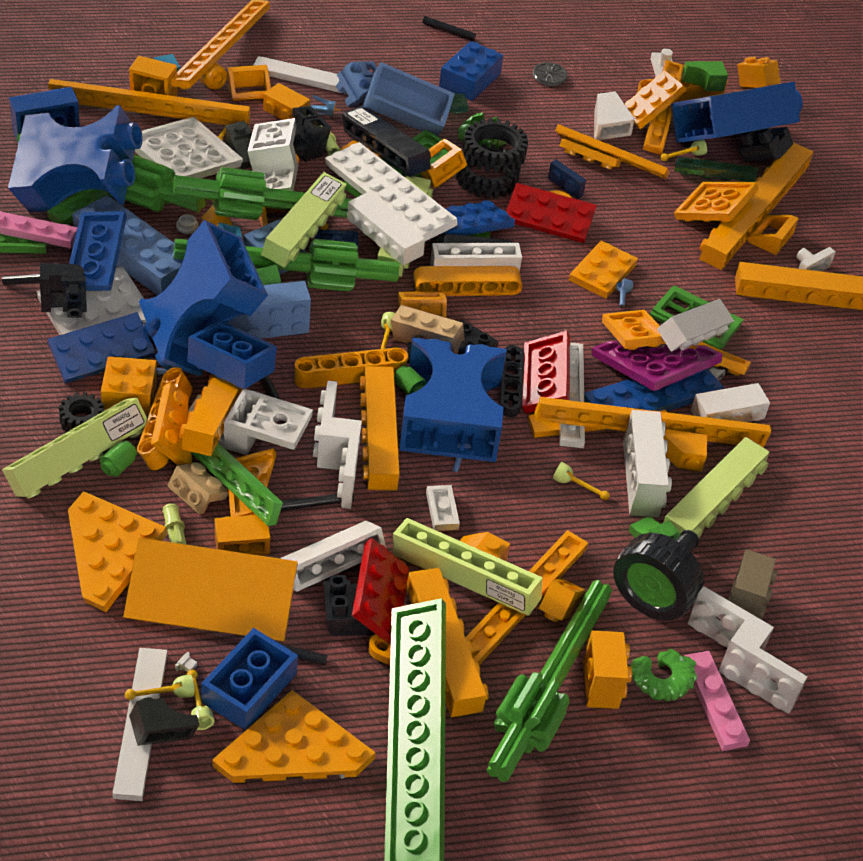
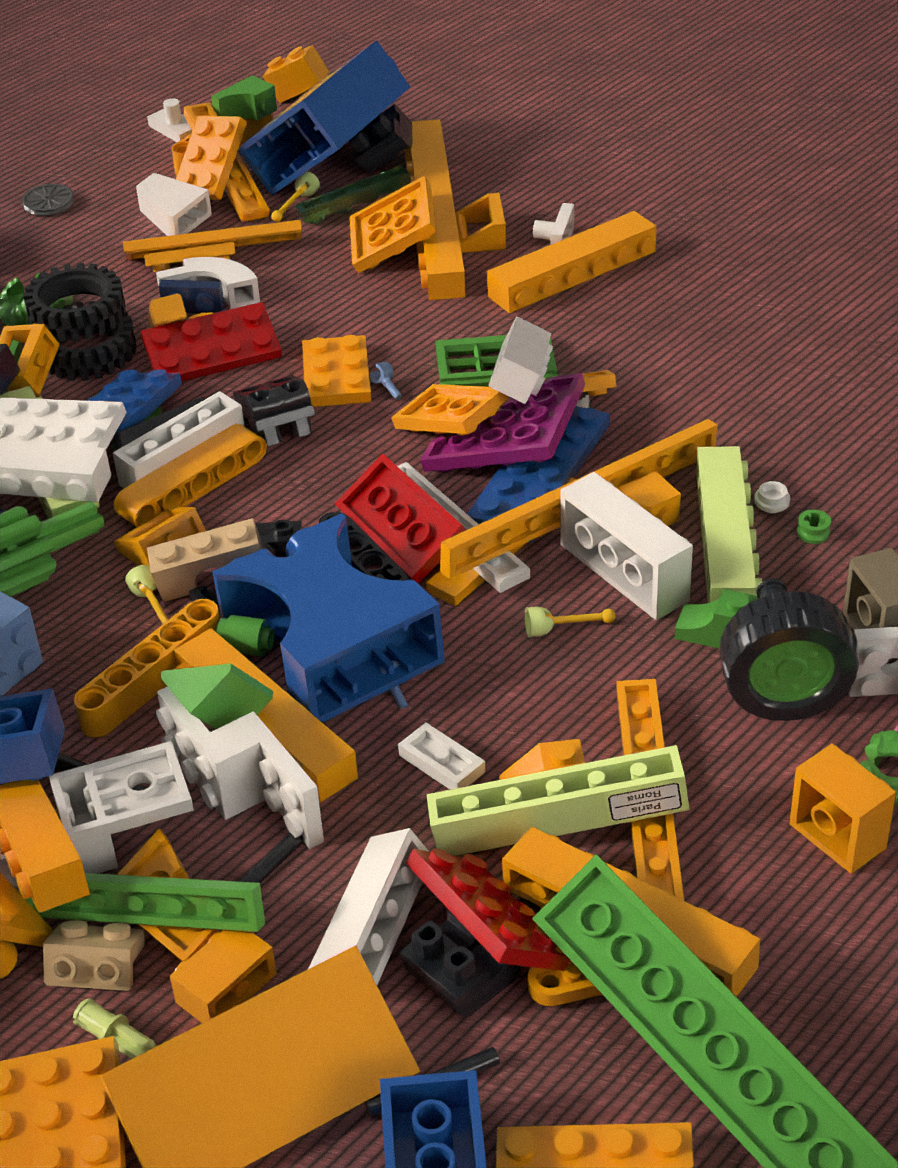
camera: 30 degrees left, 5 degrees down
(353, 402) = (217, 692): none -> bright green slope
(532, 705) = (817, 907): bright green axle -> none
(538, 180) = (166, 310): none -> light orange slope
(544, 270) = (276, 404): none -> black hips
(561, 599) = (702, 767): light orange slope -> none
(596, 177) = (237, 280): none -> white arch
(735, 404) = (640, 423): white brick -> none
(764, 492) = (772, 497): none -> white plate
(772, 518) = (813, 526): none -> bright green bush

